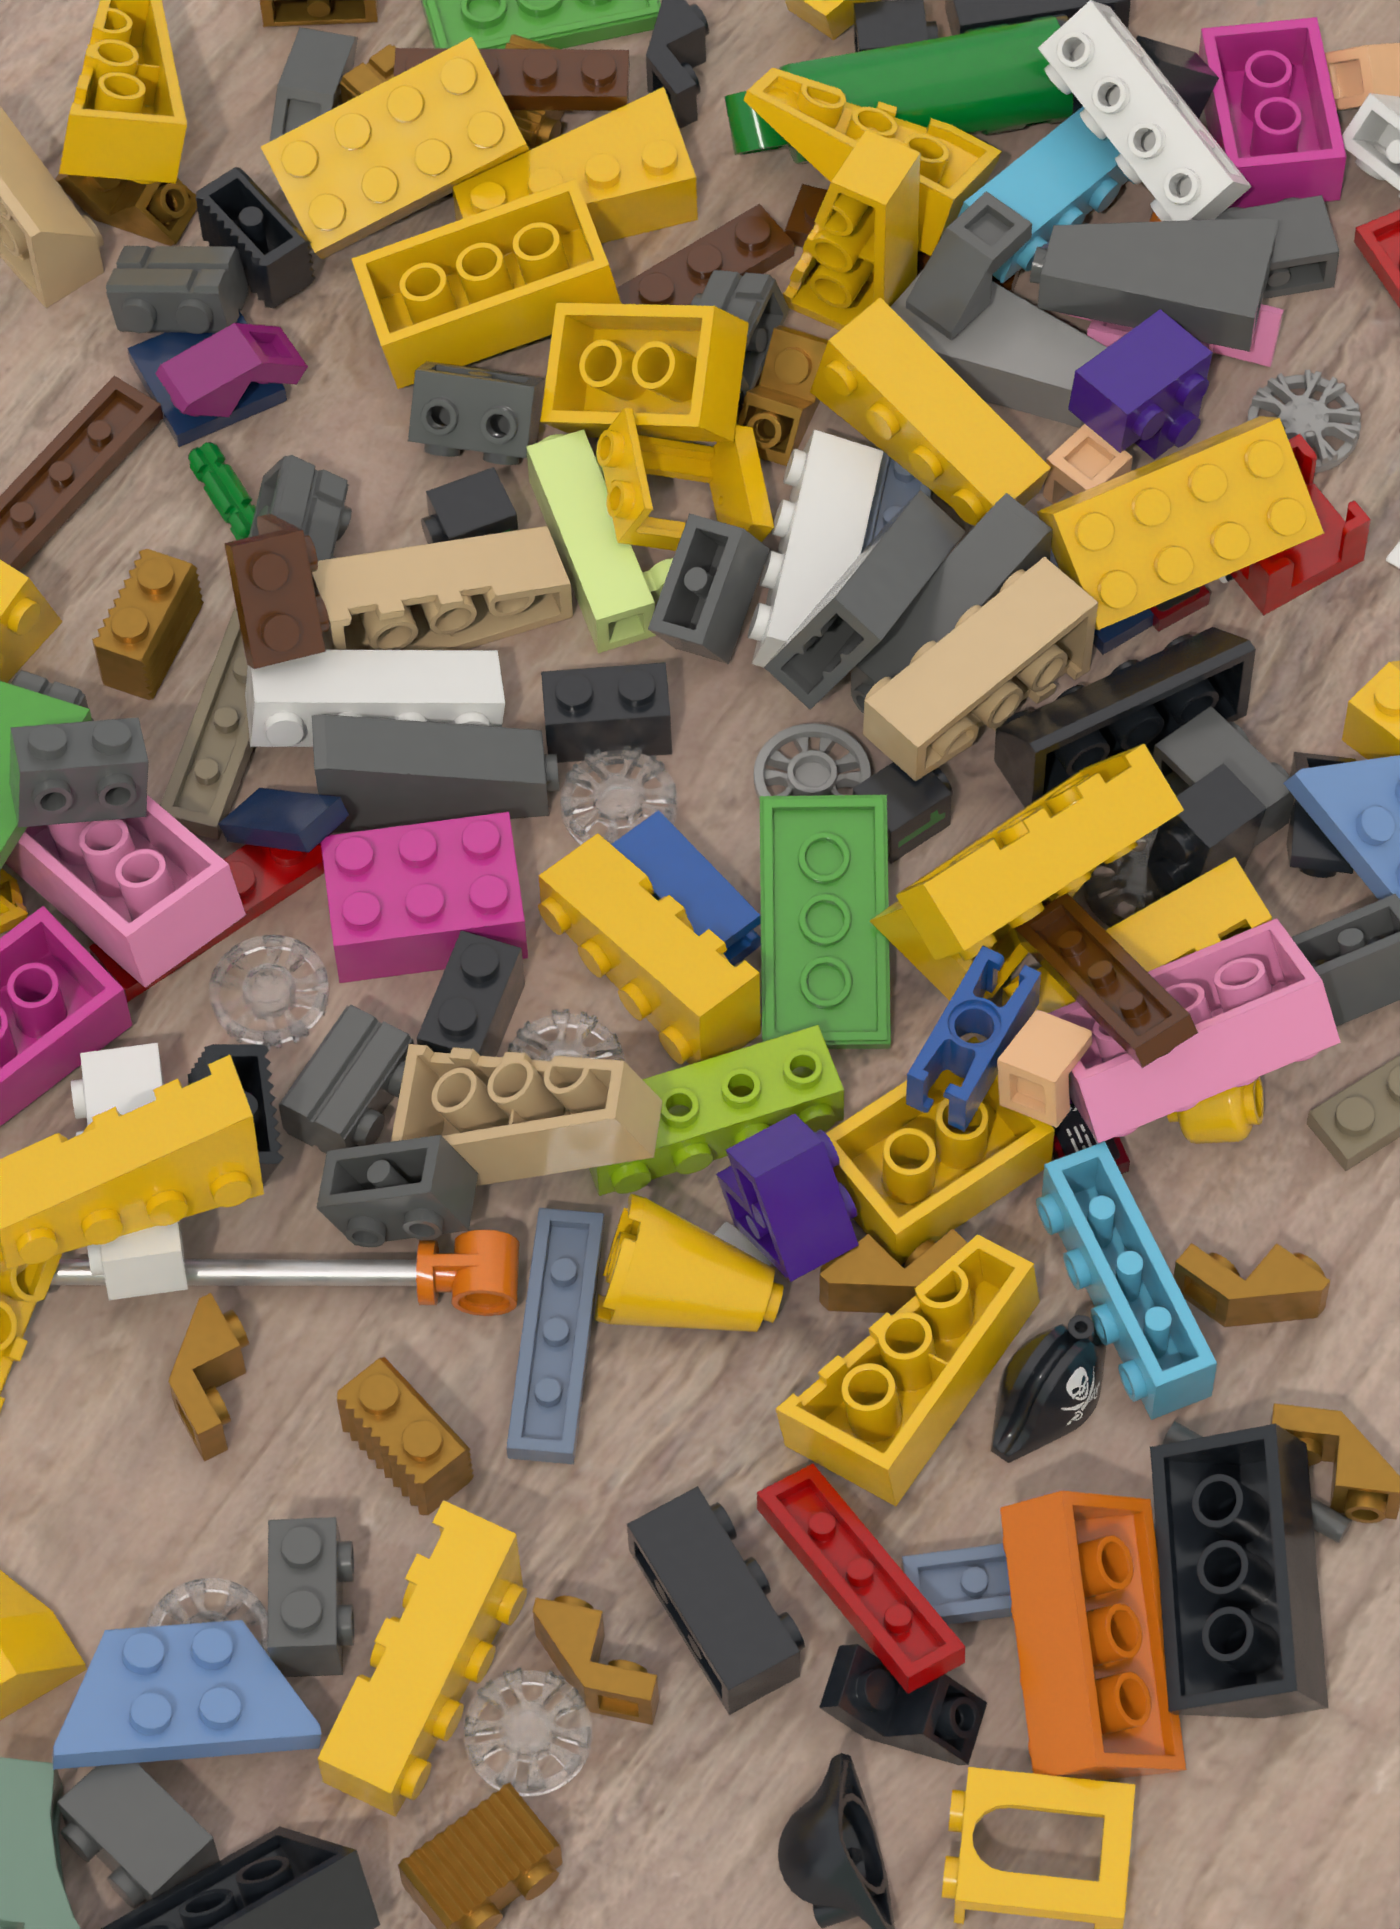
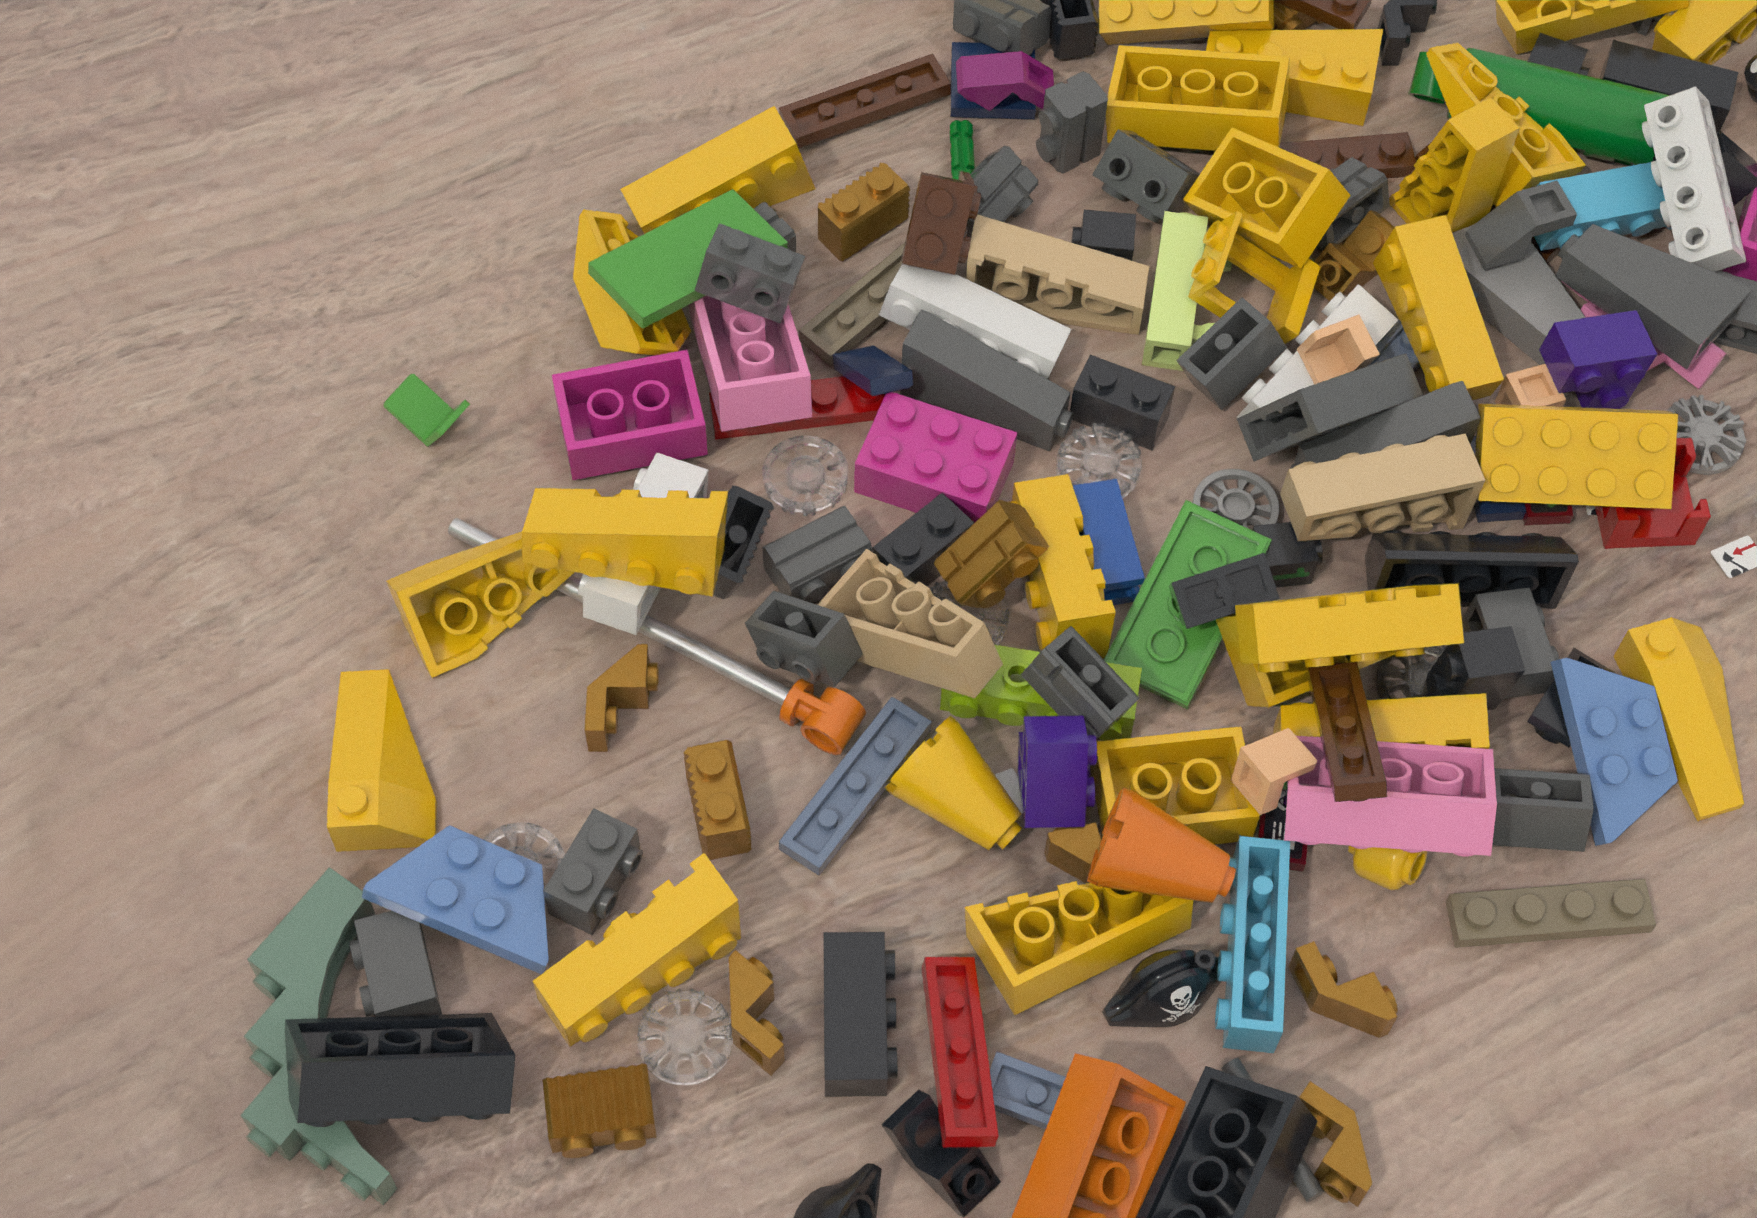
camera: 25 degrees right, 0 degrees up
(348, 385) = (1072, 122): none -> dark grey brick
(569, 978) = (991, 555): none -> pearl gold brick
(766, 1077) = (1079, 683): none -> dark grey brick
(838, 526) = (1338, 349): none -> light nougat panel
(866, 884) = (1220, 589): none -> black hinge
(967, 1232) = (1157, 854): none -> orange cone
(972, 1061) = (1238, 707): blue piece -> none

